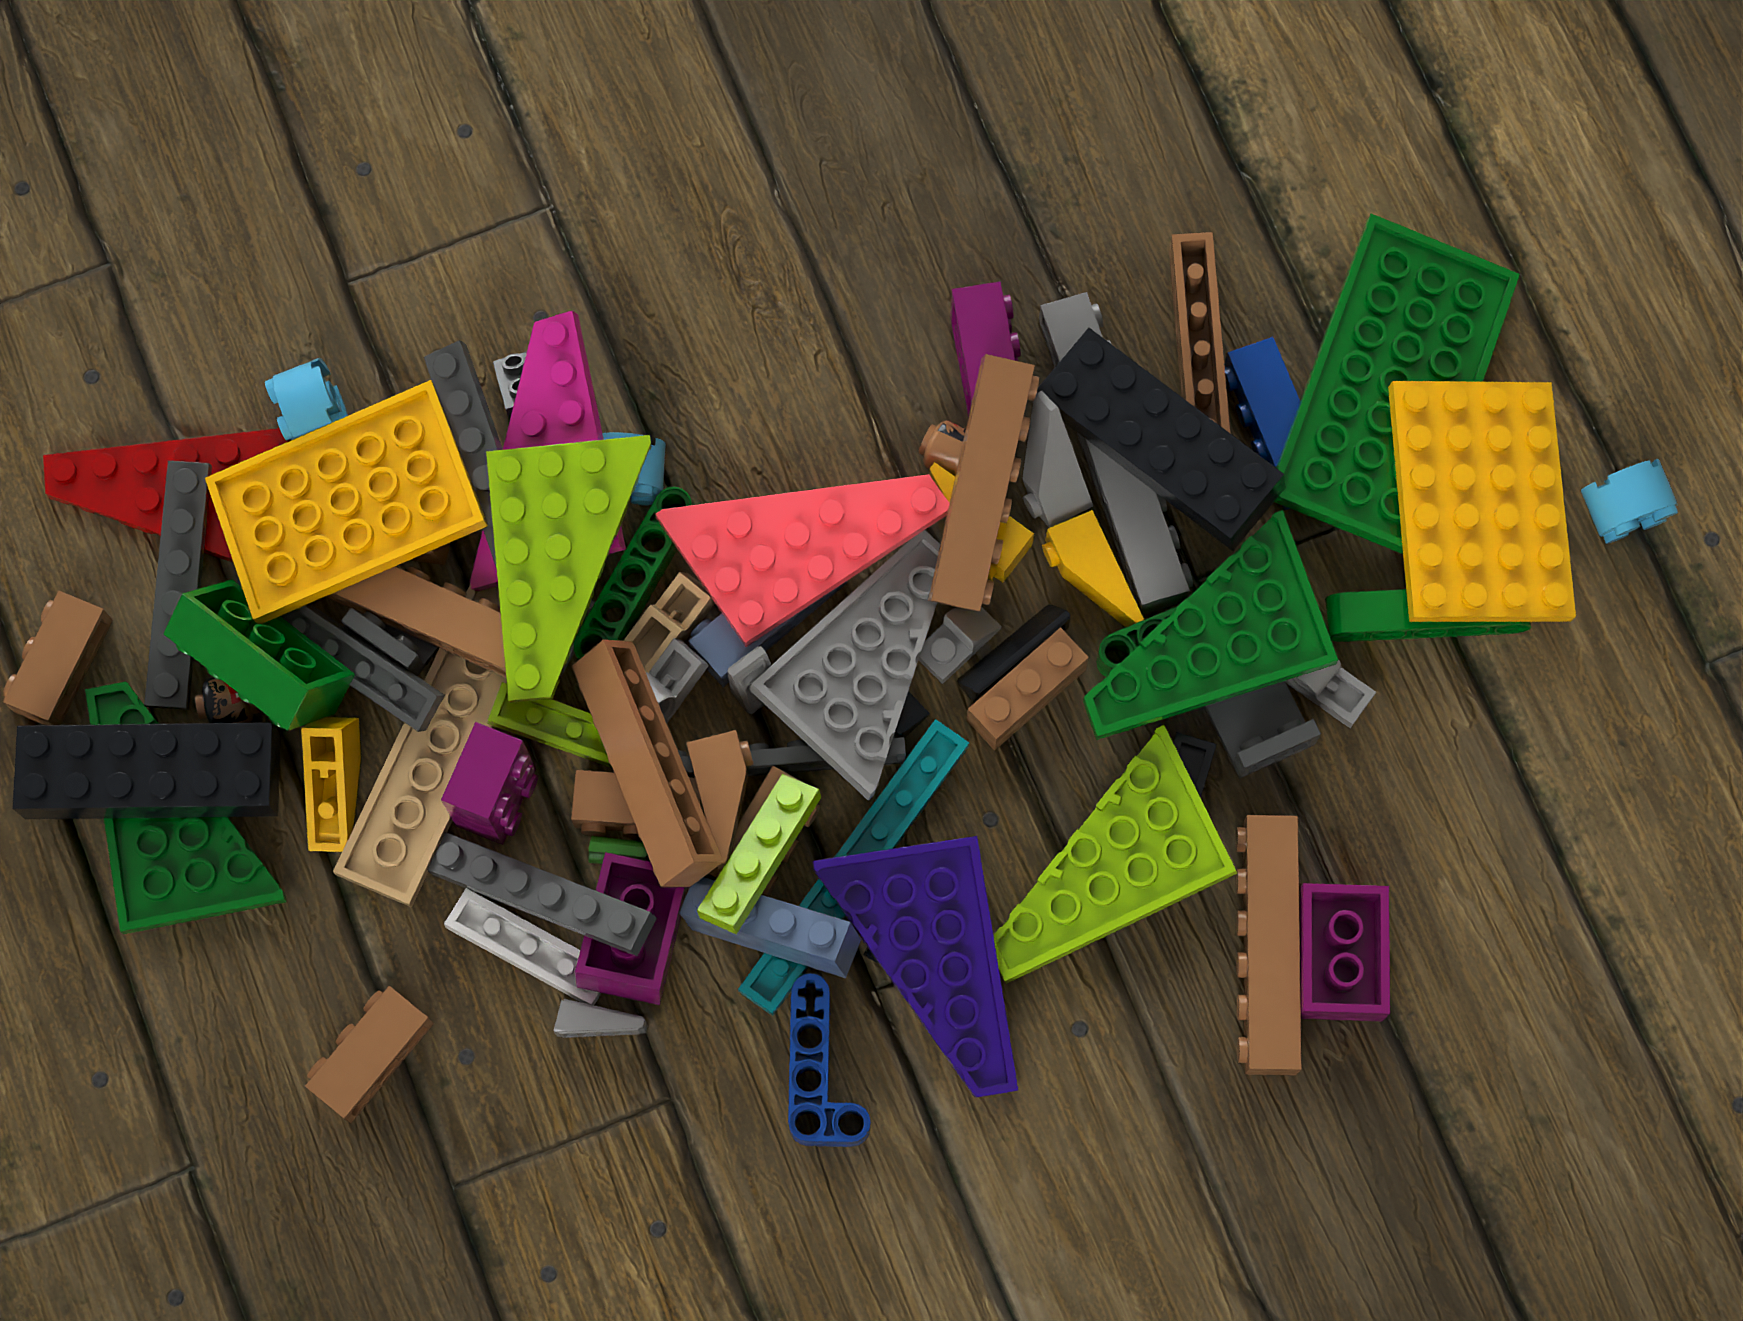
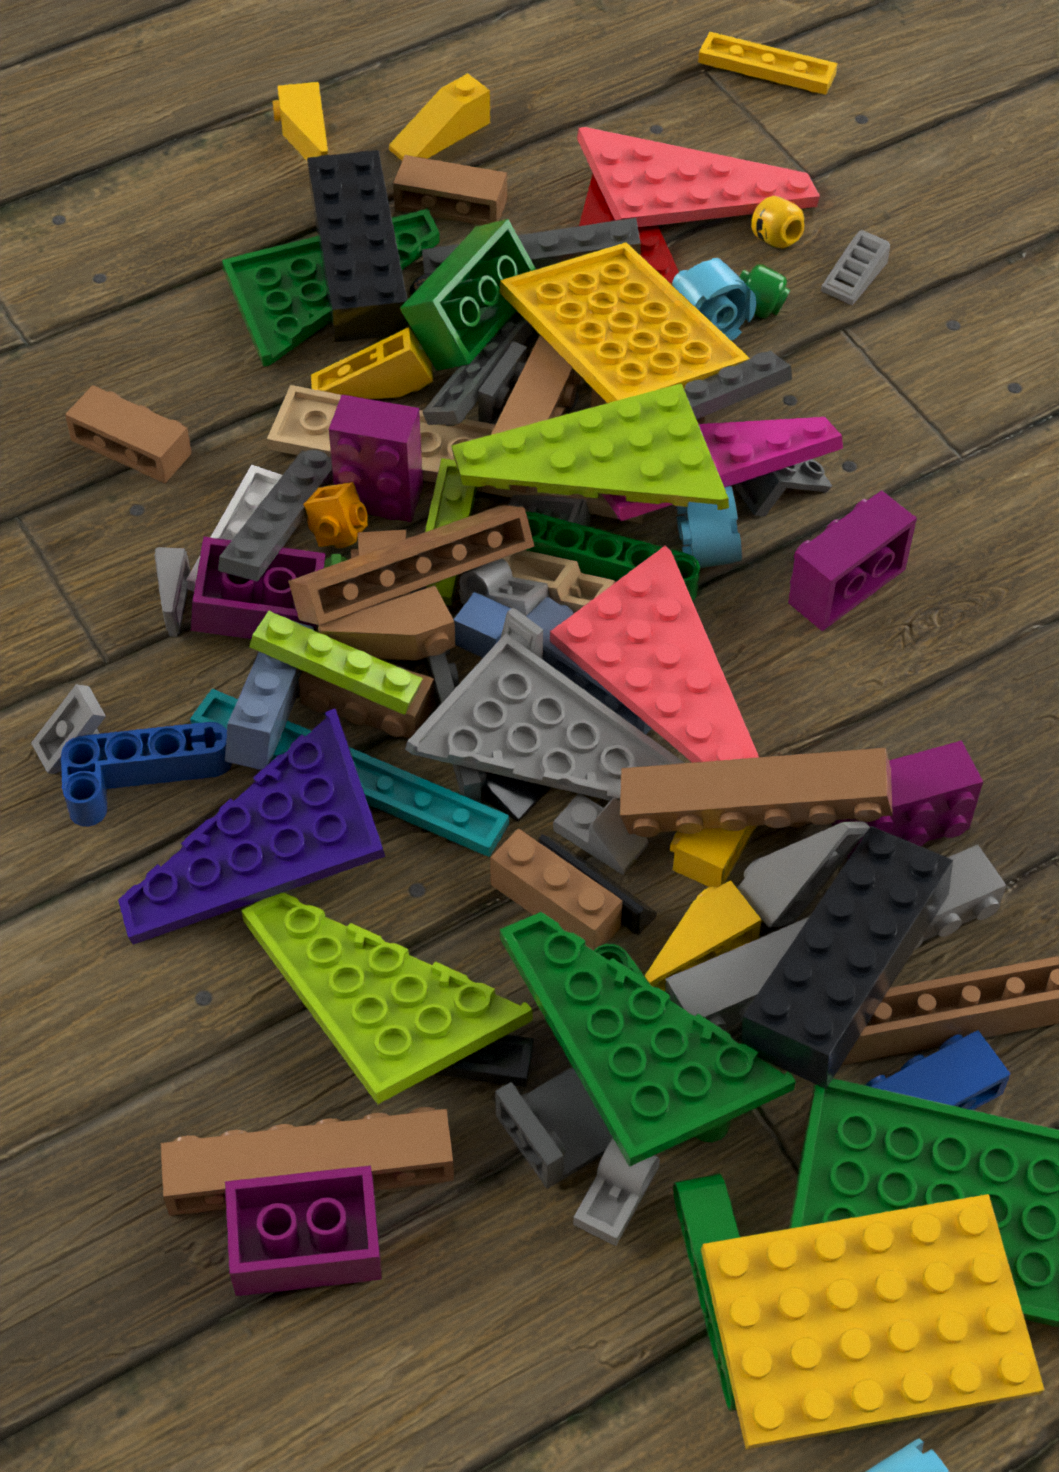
camera: 80 degrees right, 20 degrees down
(107, 404) = (682, 184): none -> coral wing
(187, 312) = (778, 222): none -> yellow head
(251, 229) = (866, 249): none -> light grey slope
(289, 347) = (768, 289): none -> green head
(540, 838) = (336, 515): none -> light orange brick
(692, 341) = (851, 559): none -> magenta brick
(704, 707) = (479, 624): none -> medium blue brick
(770, 1135) = (75, 717): none -> light grey slope

